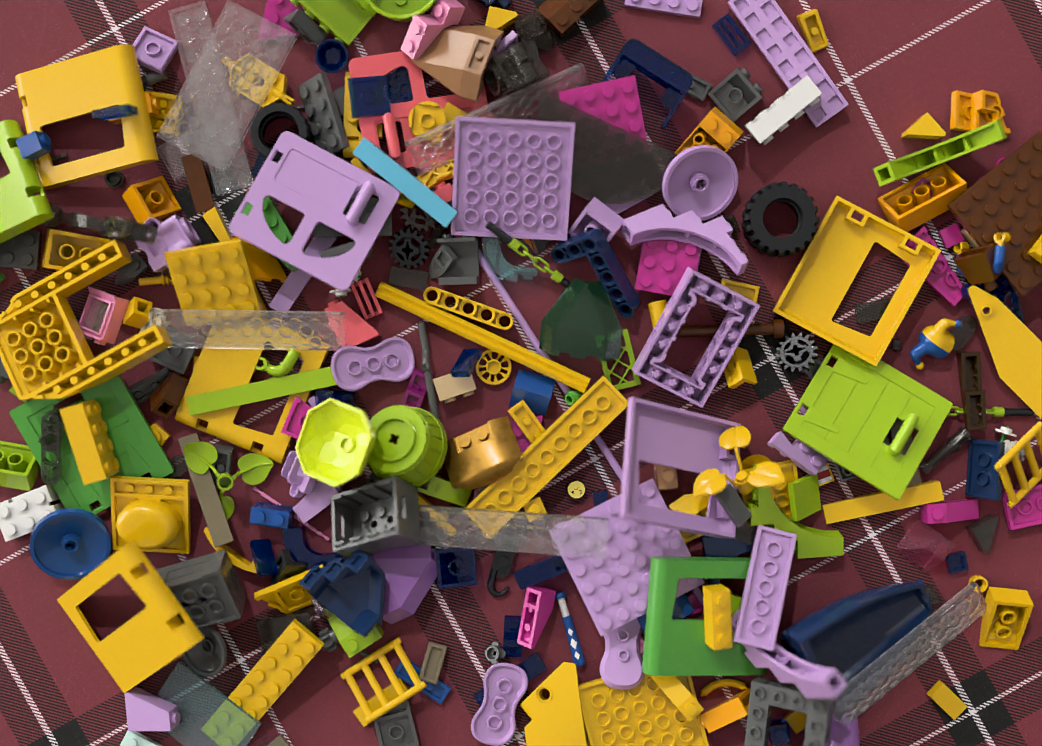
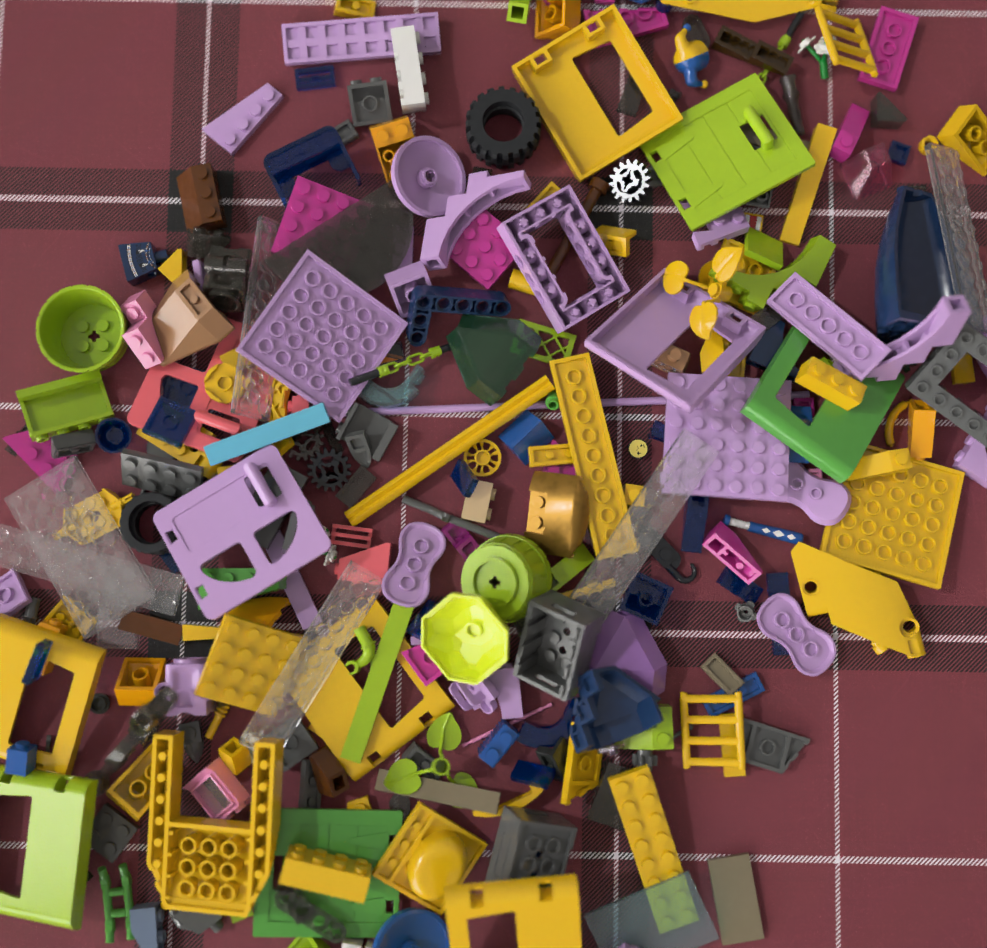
camera: 65 degrees left, 5 degrees down
(209, 654) = (595, 882): dark grey dish -> none
(461, 302) = (421, 439): yellow beam -> none
(733, 505) = (737, 312): dark grey tile -> none
(780, 732) = (966, 392): clear blue brick -> none
(982, 477) = (830, 82): dark blue tile -> none

